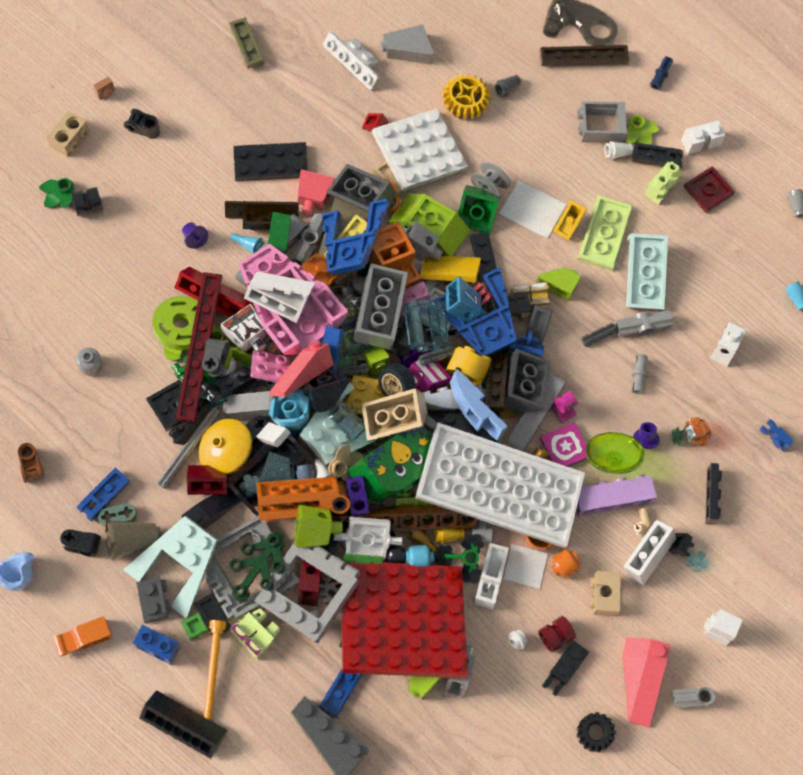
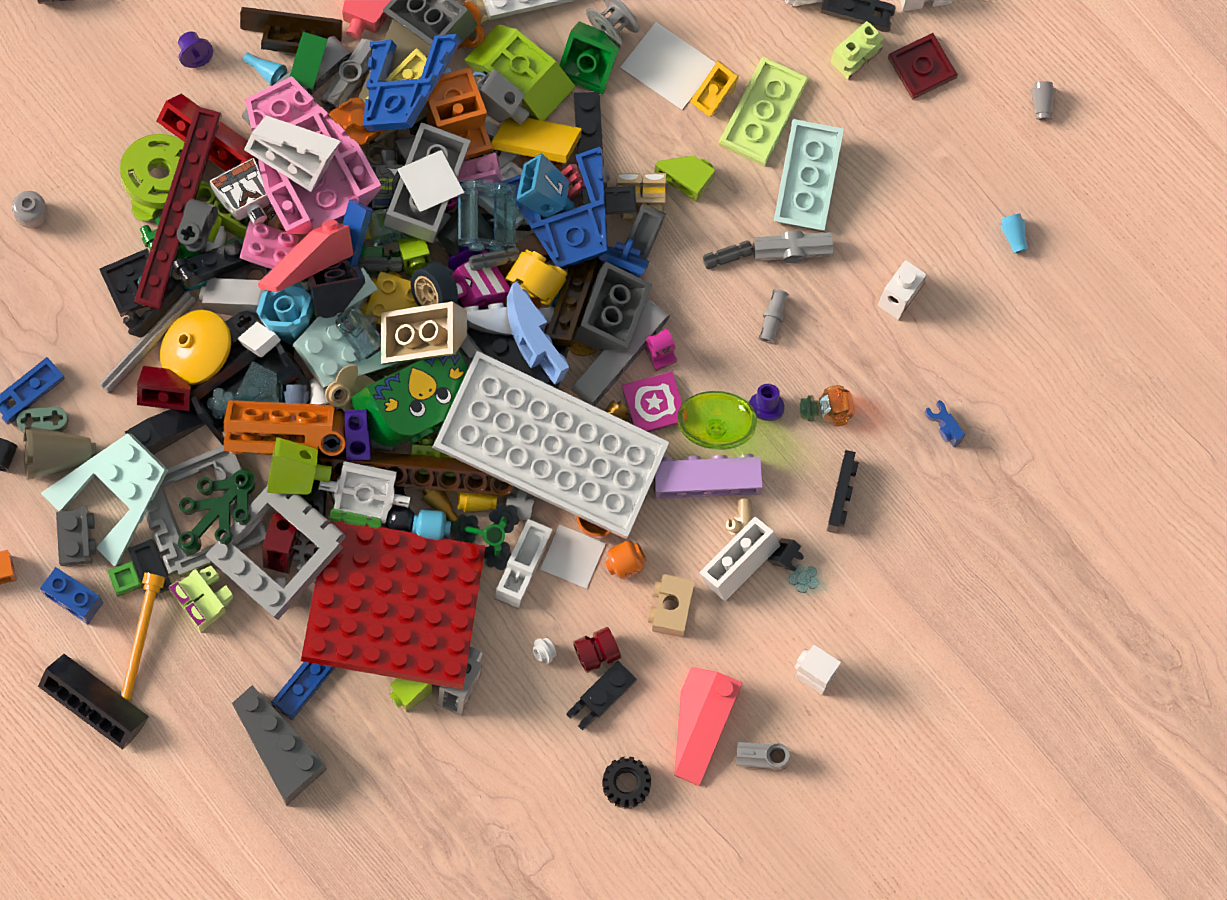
camera: 10 degrees right, 5 degrees up
(384, 304) = (430, 181): none -> white sticker

